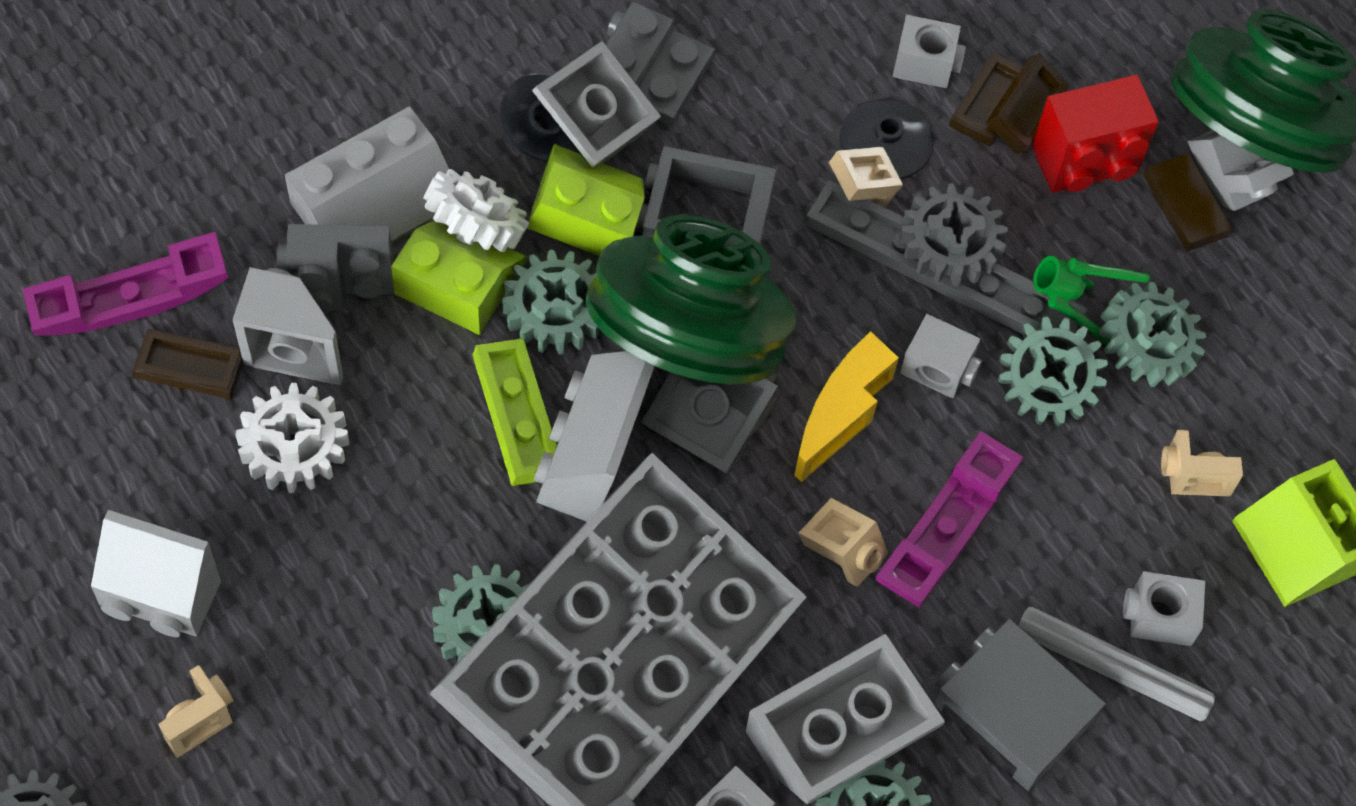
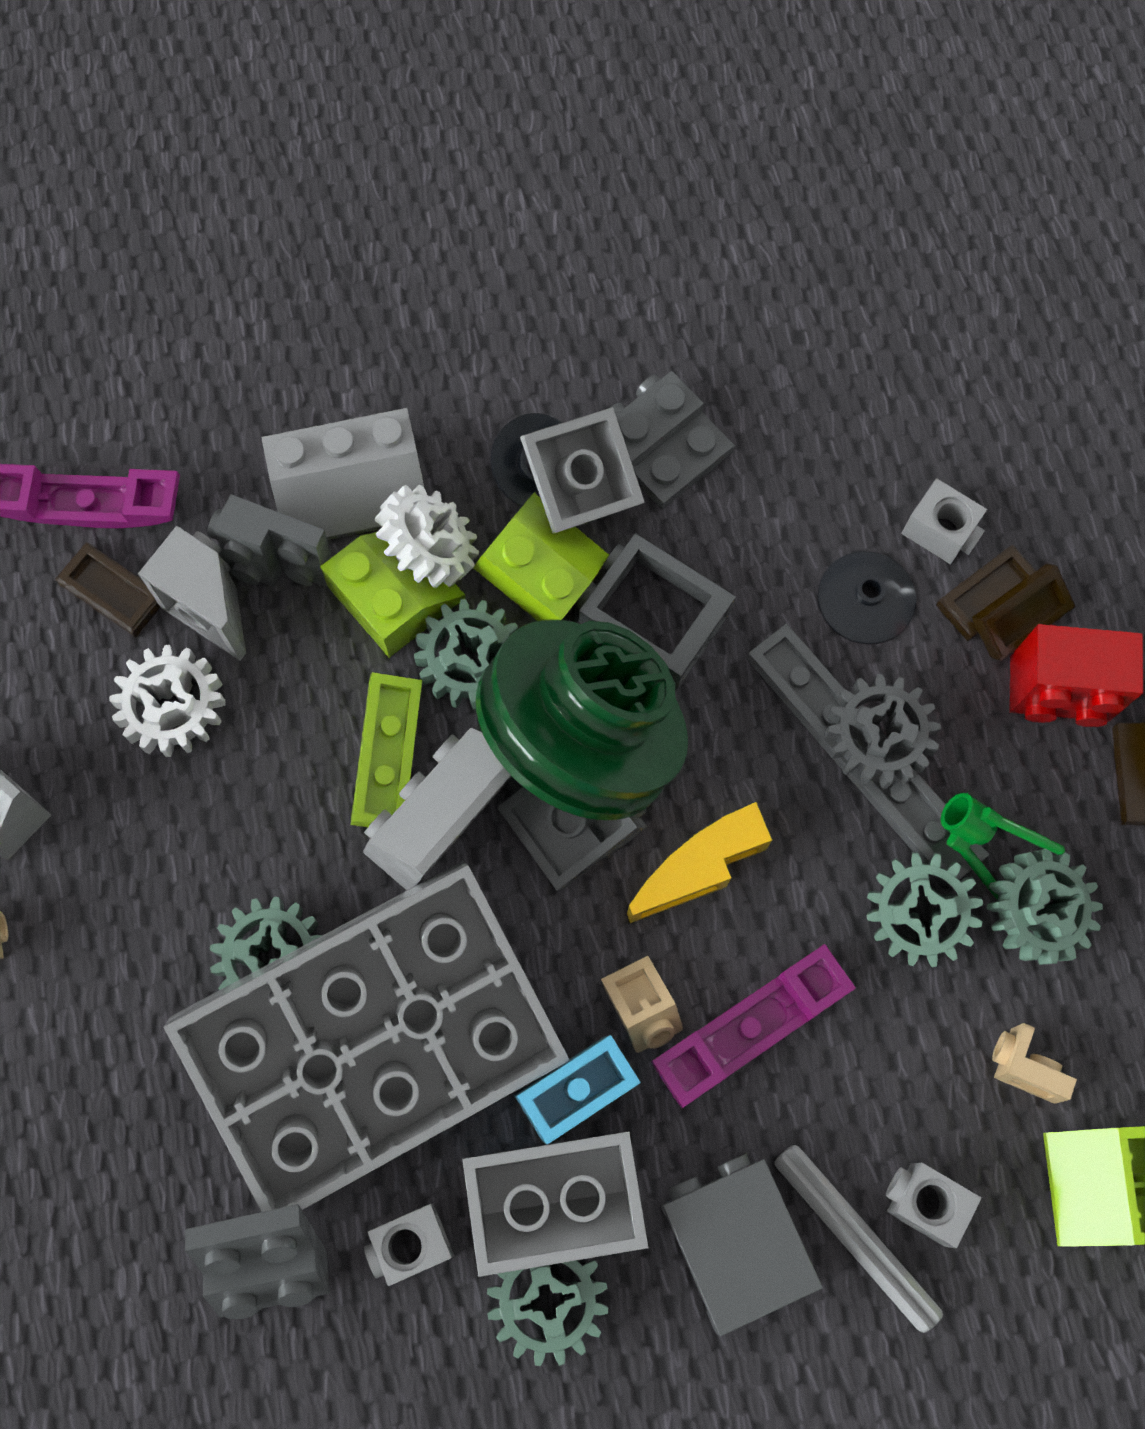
camera: 25 degrees right, 10 degrees up
(820, 624) = (577, 1089): none -> medium azure brick
(866, 174) = (823, 634): tan bracket -> none
(941, 357) = (820, 850): light grey brick -> none

